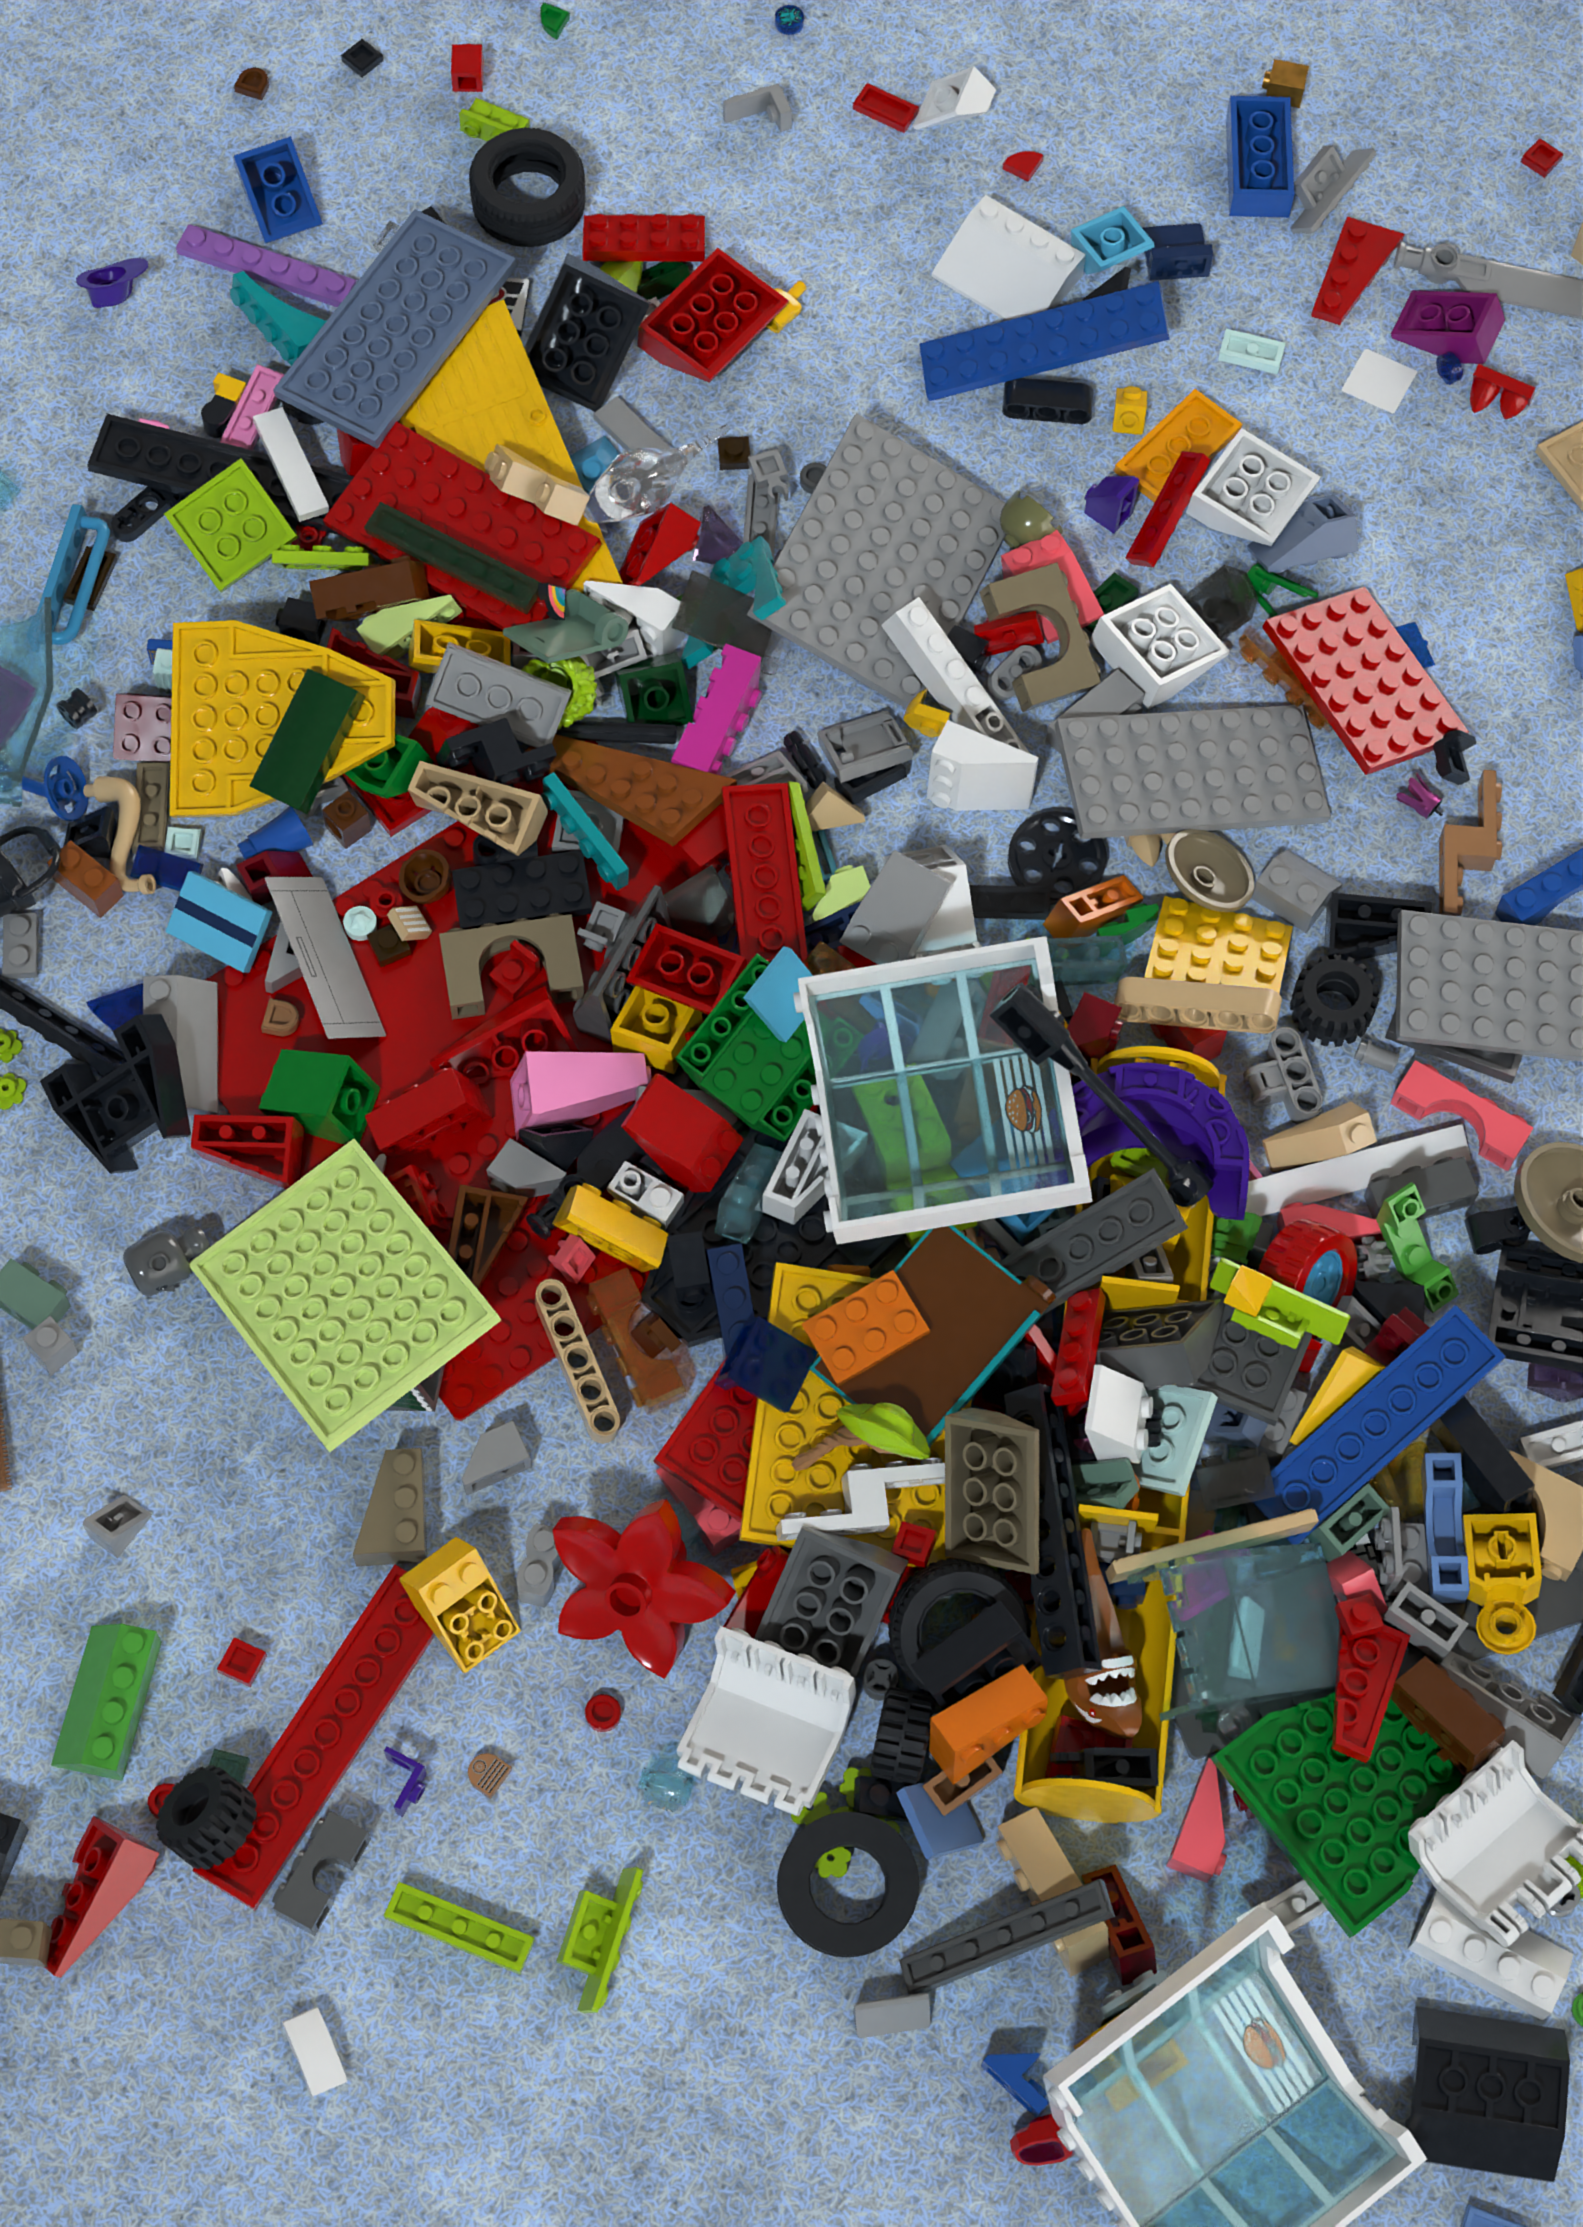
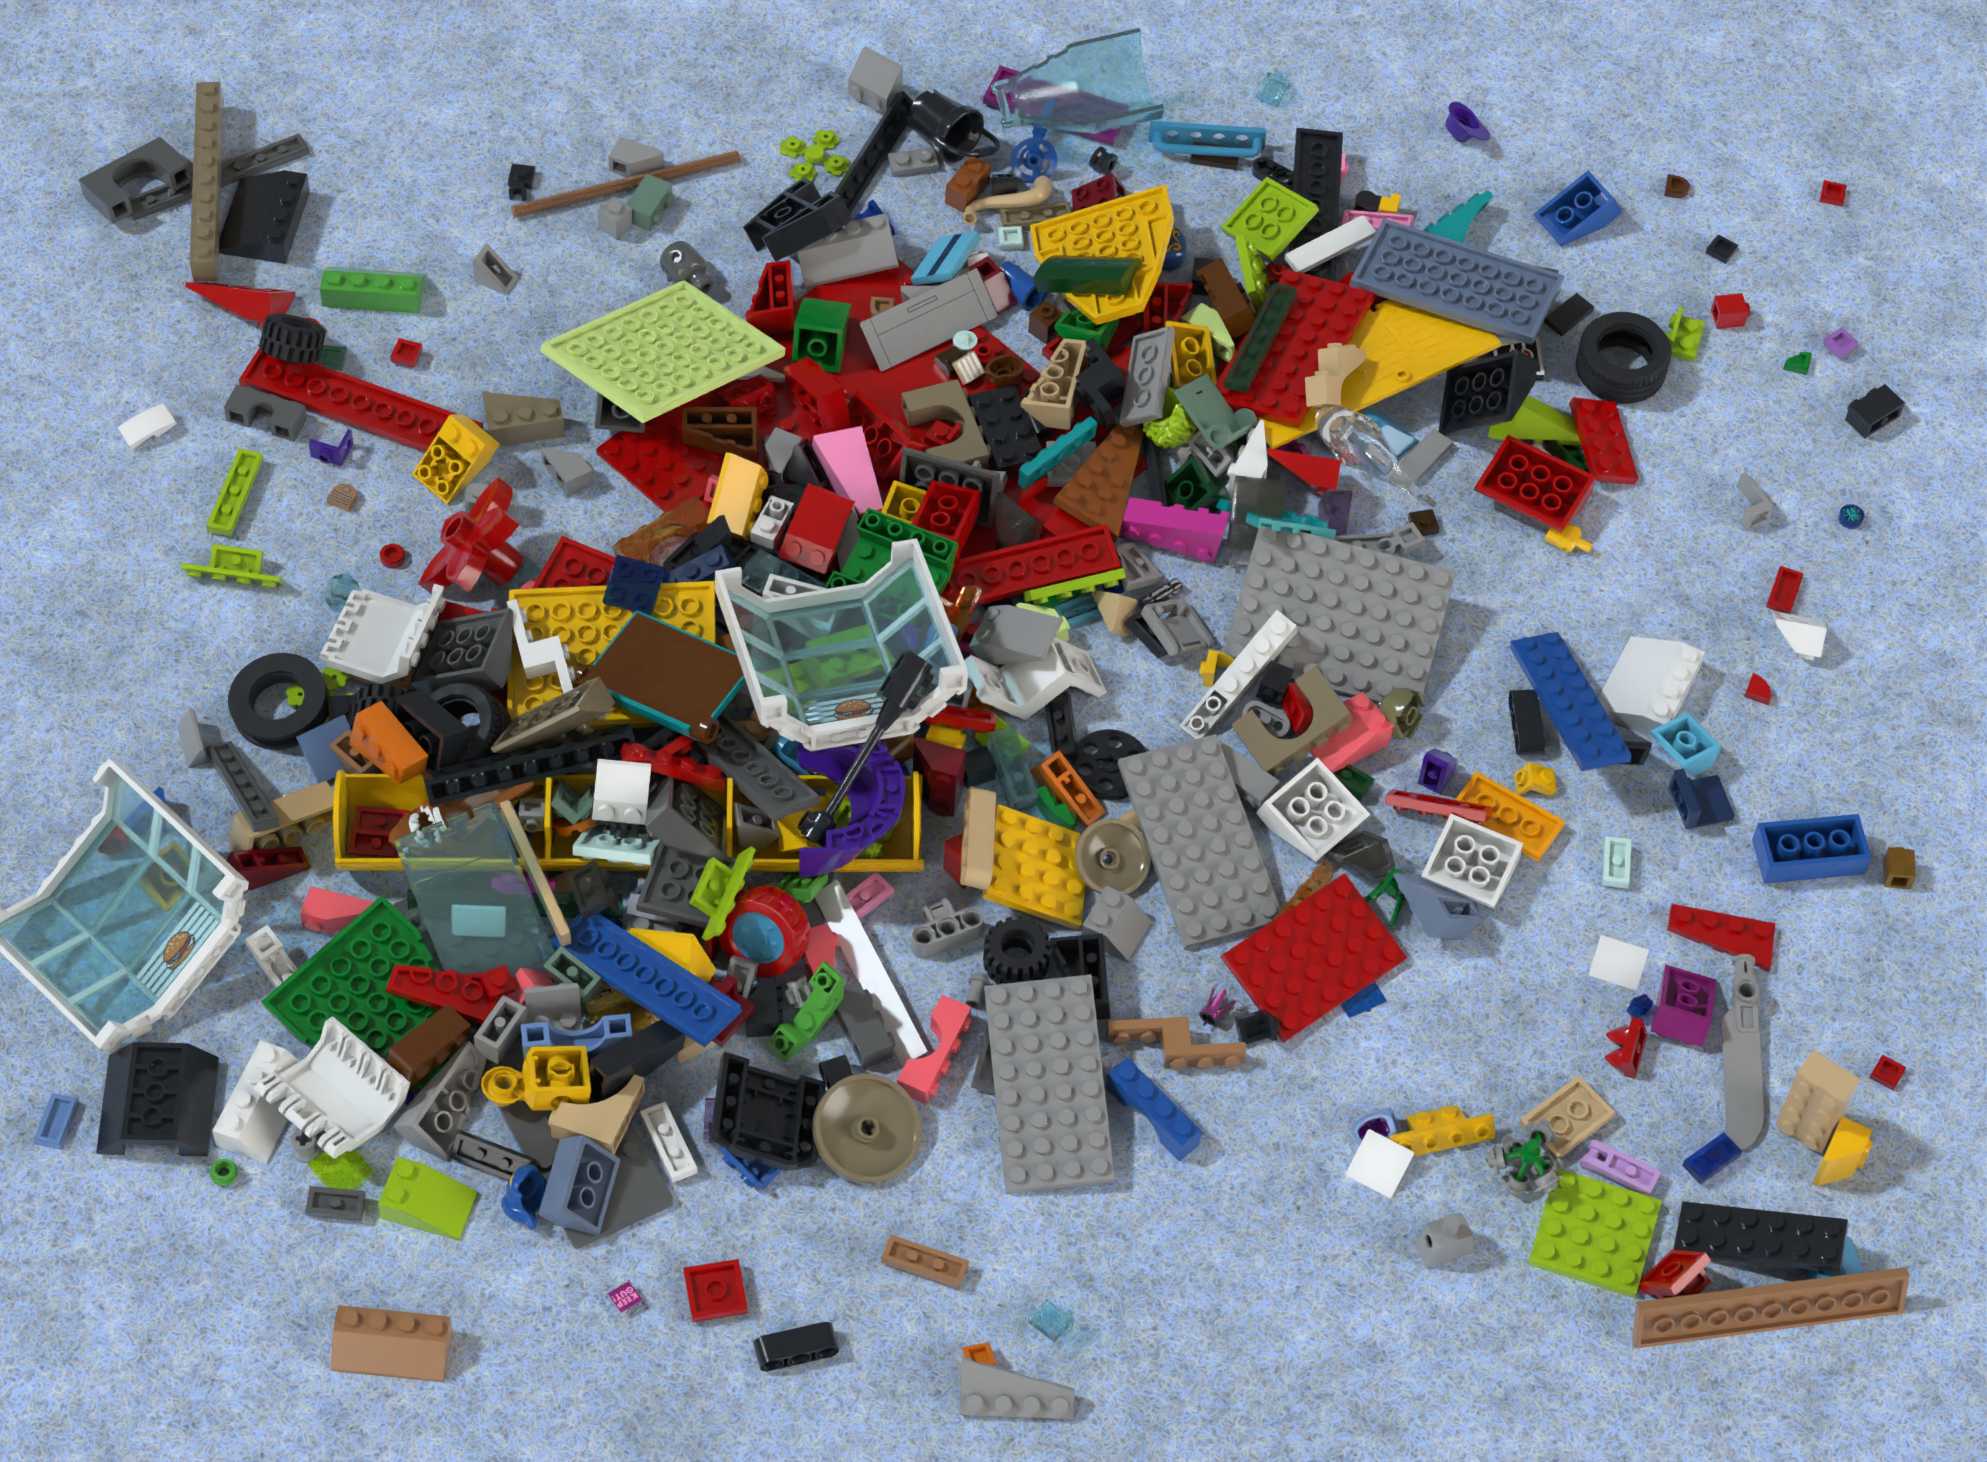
camera: 80 degrees right, 10 degrees down
(166, 868) = (988, 226): clear blue plate -> none
(264, 265) = (1512, 209): medium lavender plate -> none
(554, 599) = (1239, 399): tile -> none
(577, 1345) = (651, 495): tan beam -> none
(655, 1336) = (668, 545): reddish brown bracket -> none
(773, 994) = (941, 563): medium azure tile -> none
(865, 1328) = (666, 632): orange plate -> none
(879, 1426) = (588, 647): lime hat -> none
(914, 1543) = (516, 693): red plate -> none
(979, 772) = (1158, 682): white slope -> none
(1119, 1766) = (364, 826): black hinge -> none
(1248, 1291) = (728, 863): yellow slope -> none
(1321, 1138) = (897, 953): tan slope -> none
(1325, 183) = (1803, 901): light grey bracket -> none

